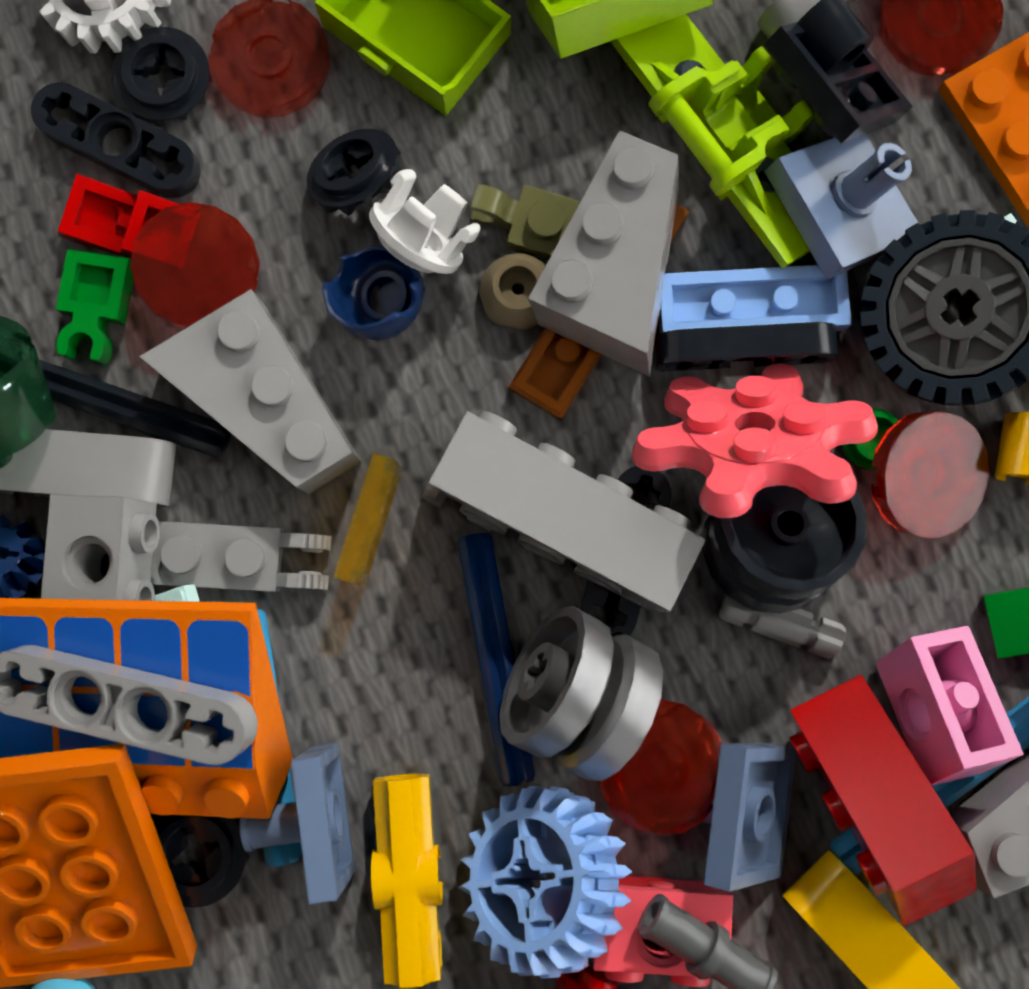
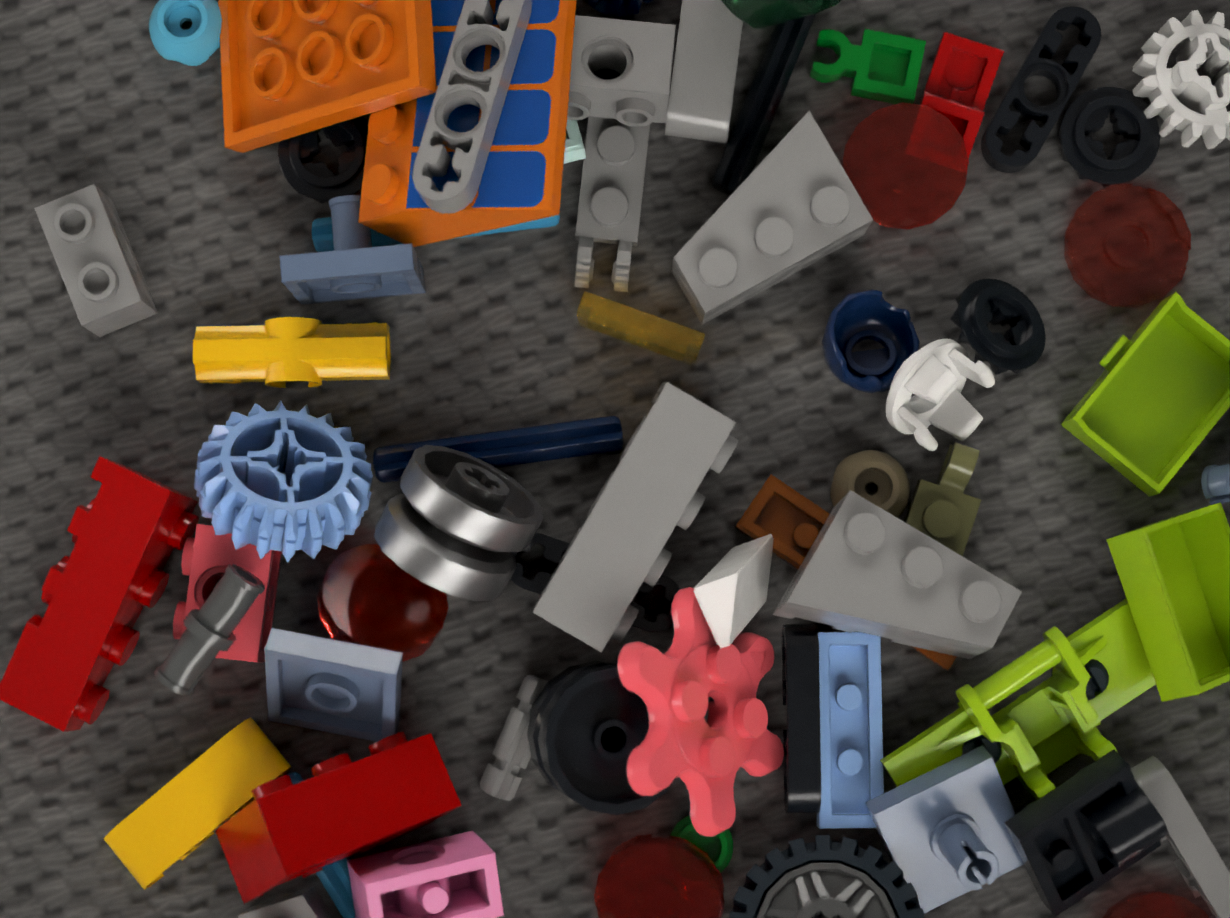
camera: 90 degrees right, 0 degrees up
(628, 412) = (736, 589): none -> white slope

